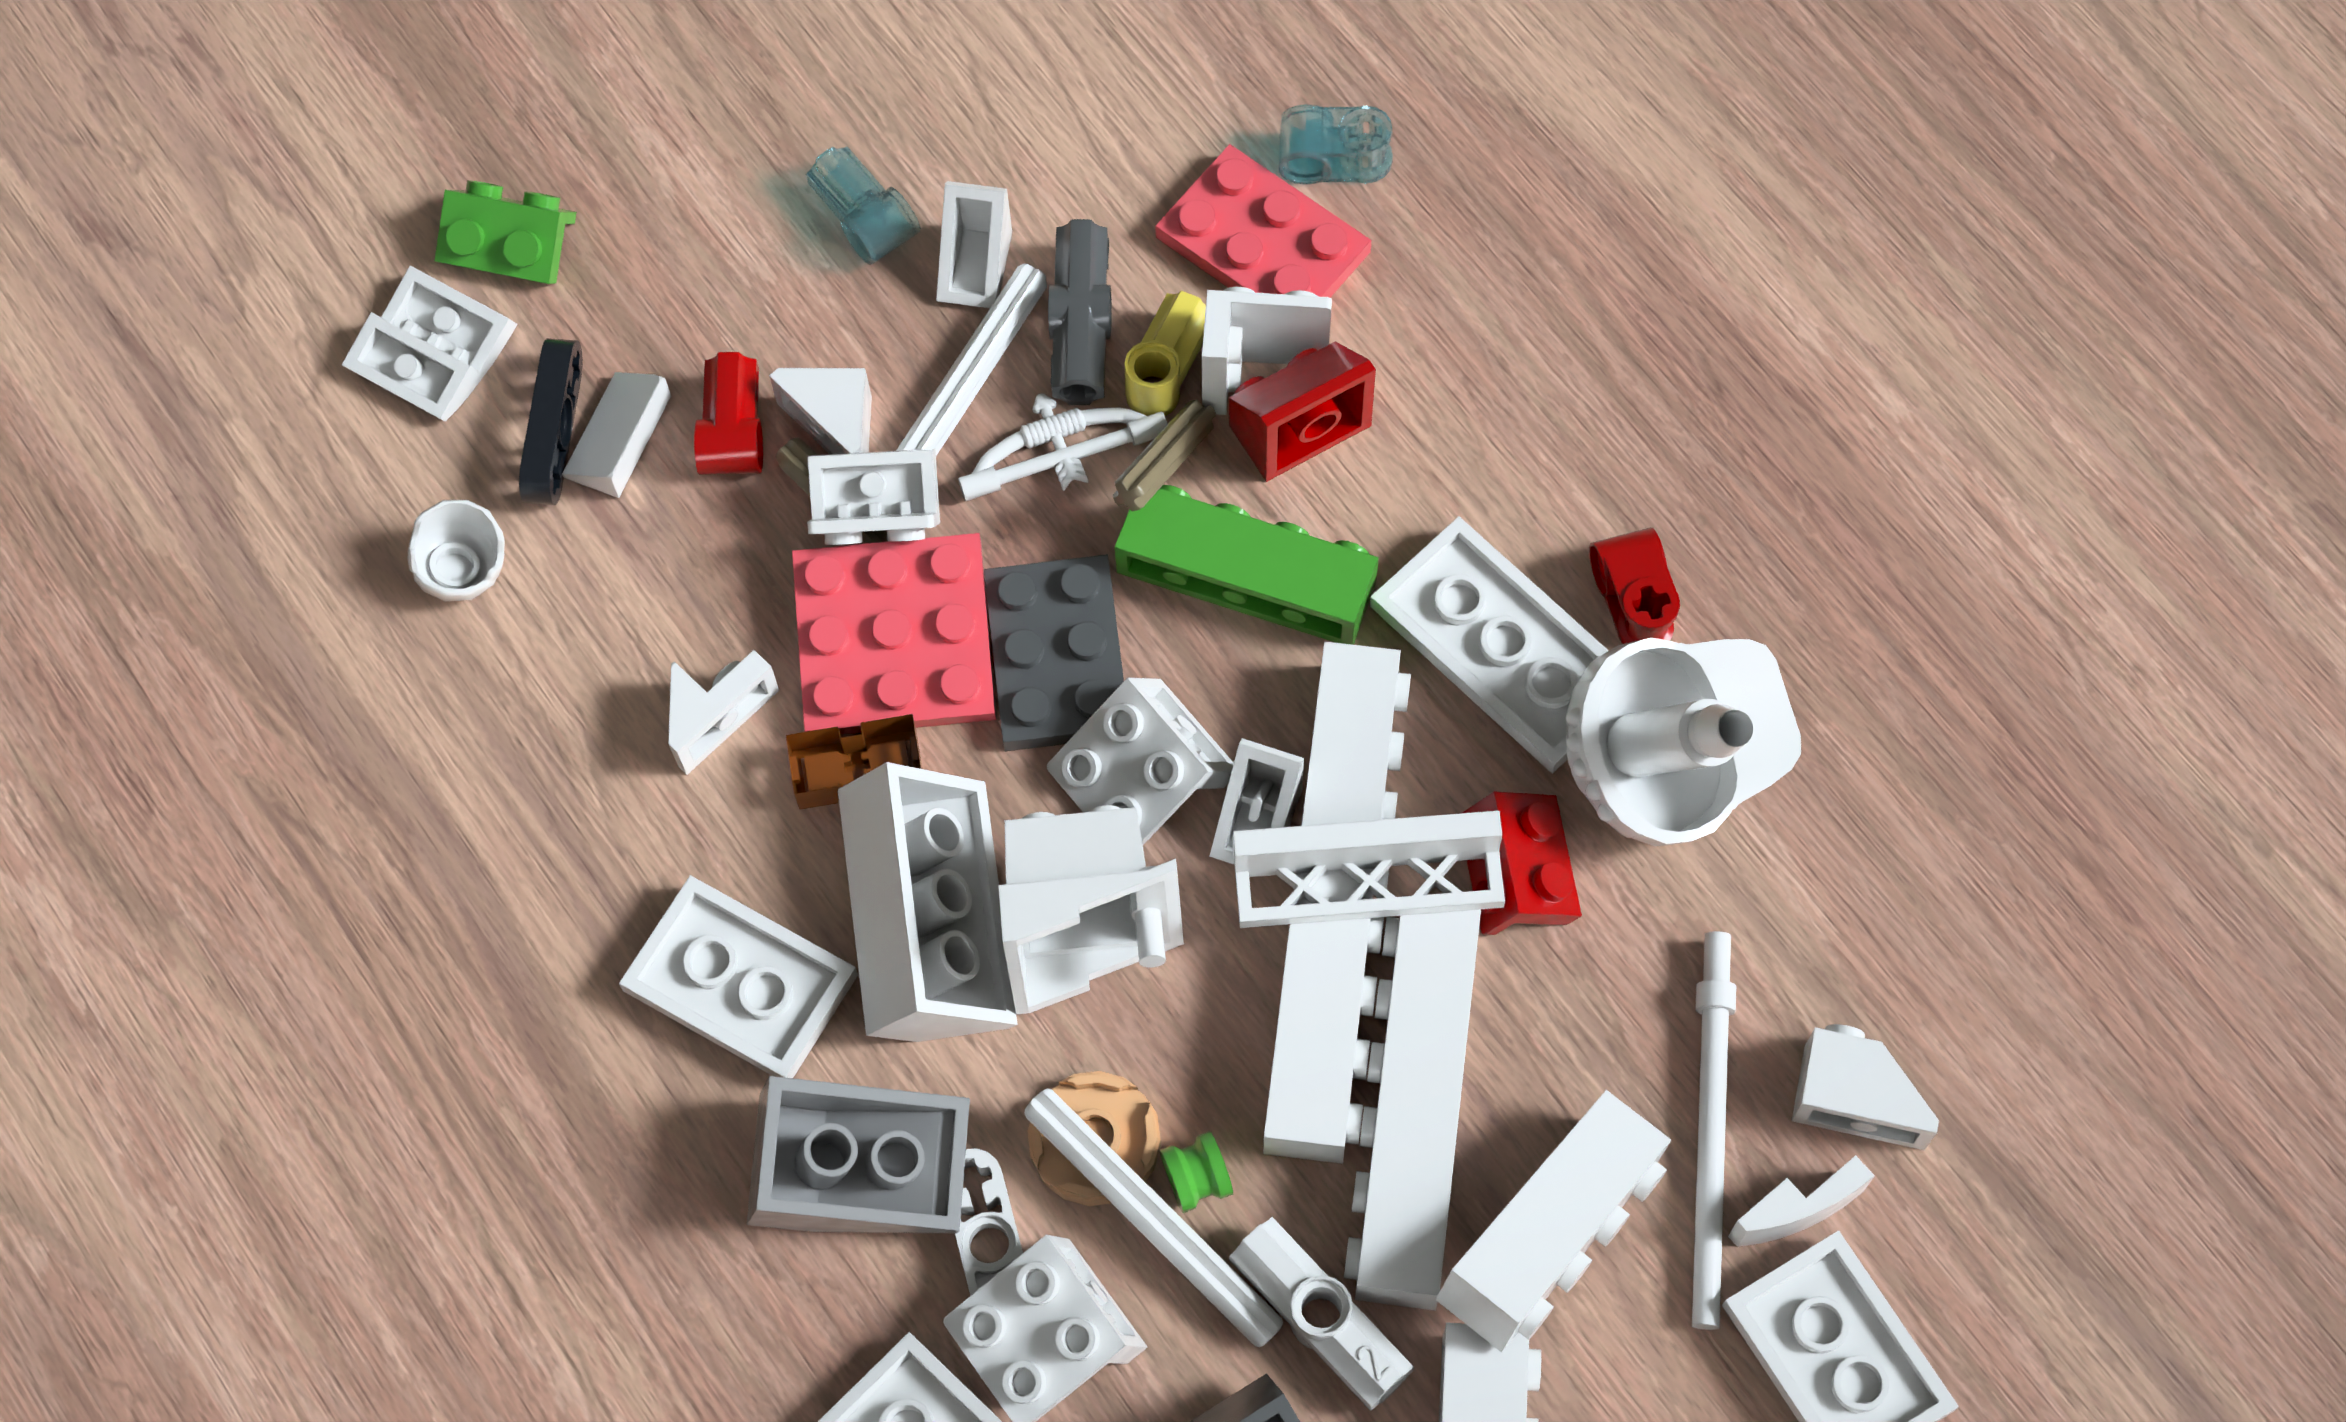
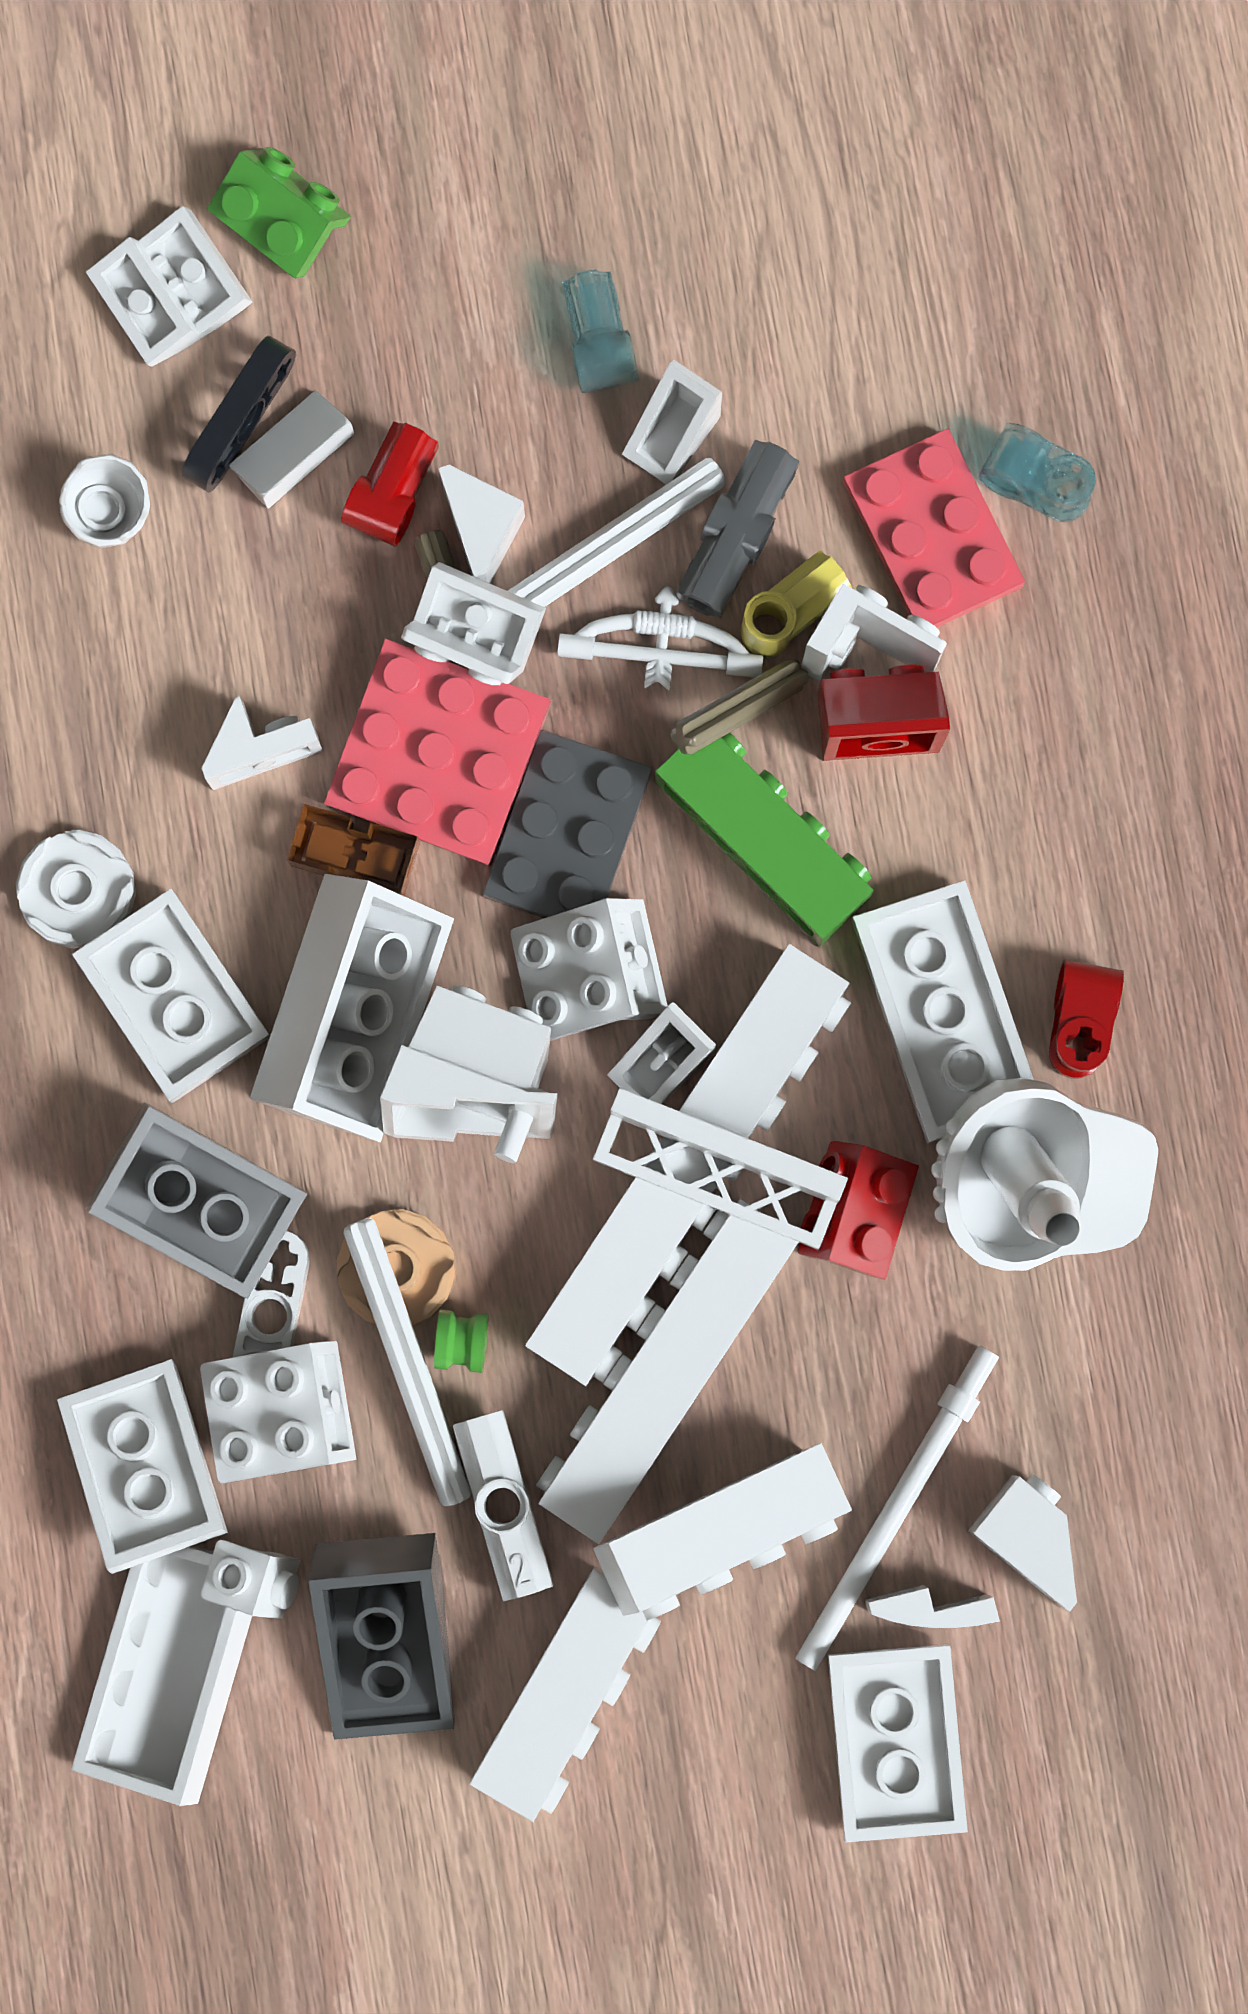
camera: 25 degrees right, 15 degrees up
(590, 925) = (75, 888): none -> white tile

